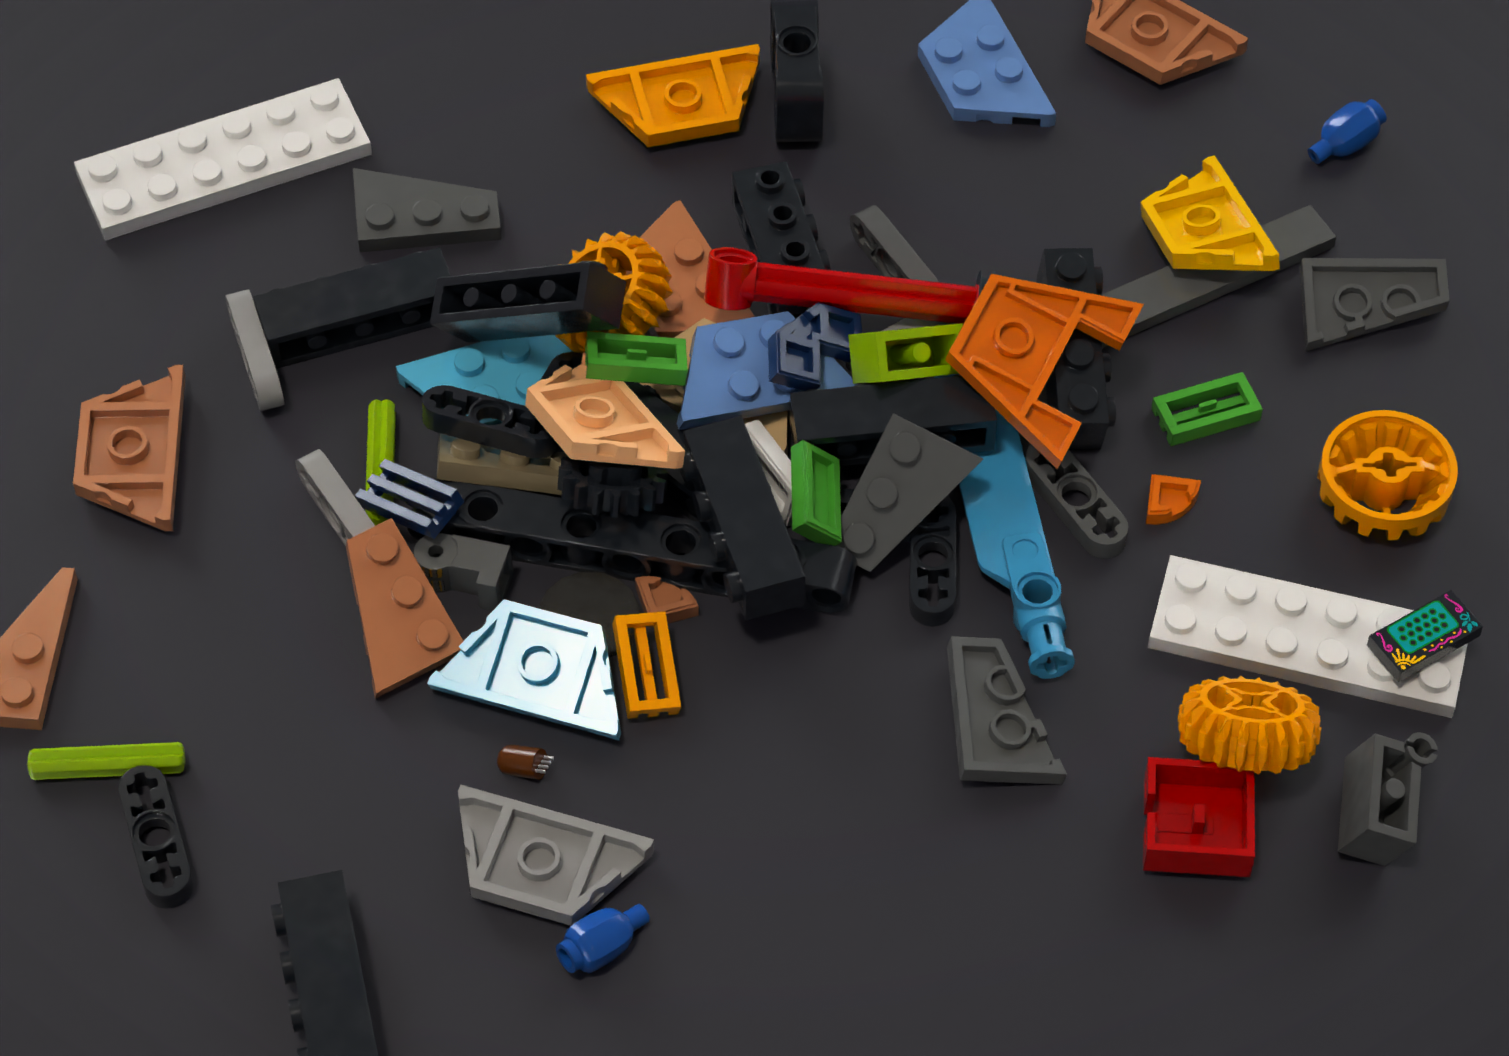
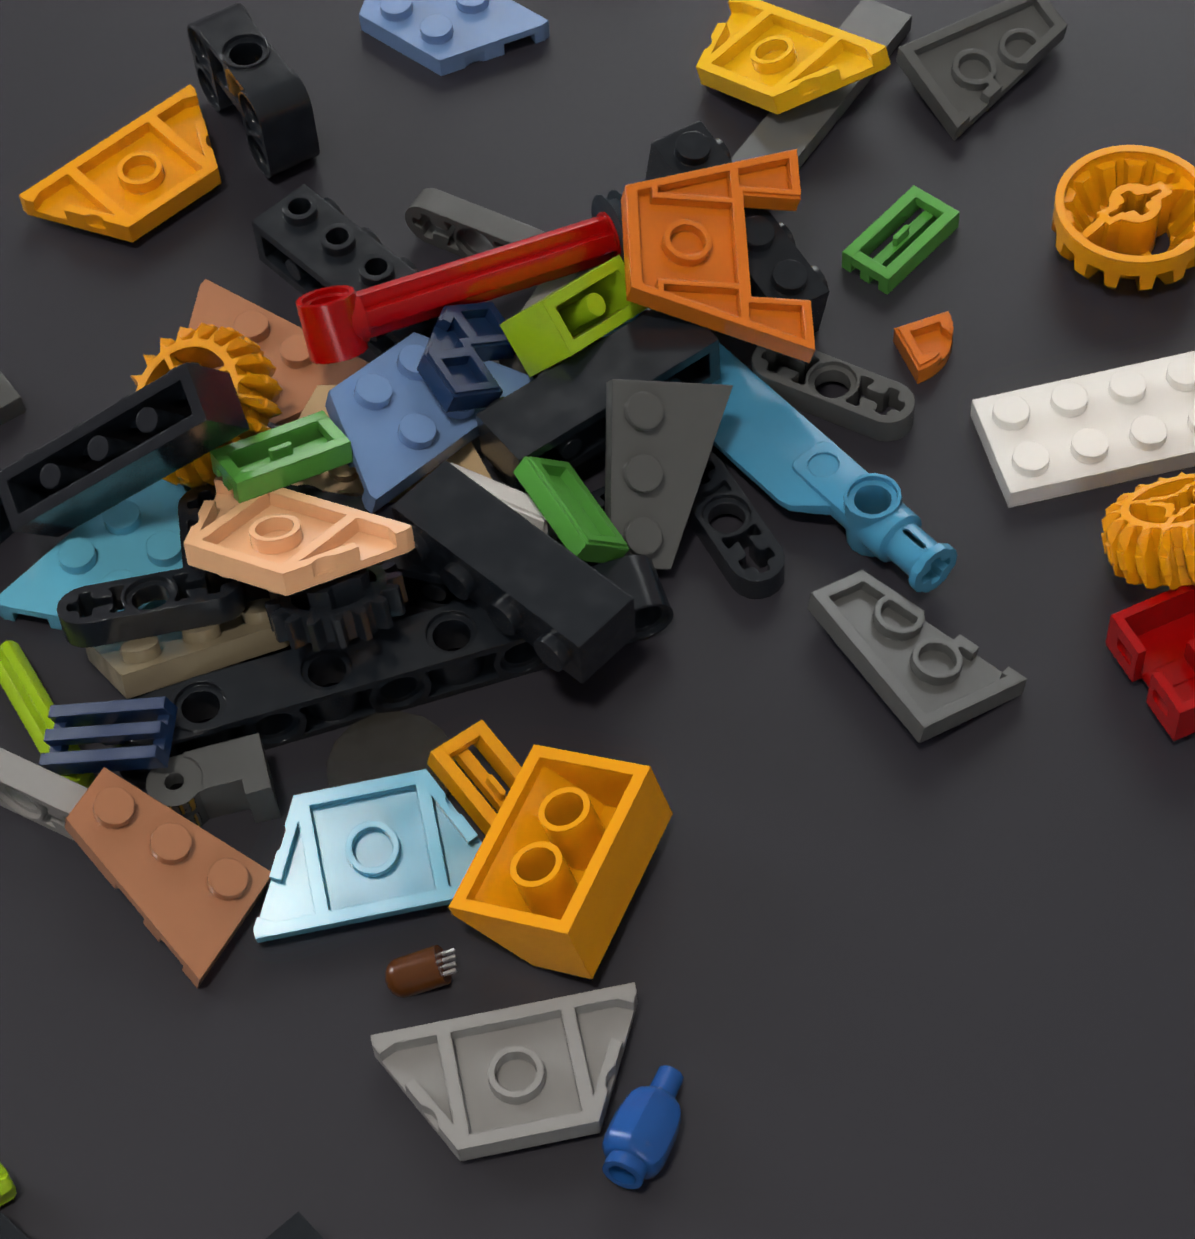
camera: 25 degrees left, 0 degrees up
(659, 733) = (564, 858): none -> light orange slope
(663, 596) = (462, 708): nougat tile -> none

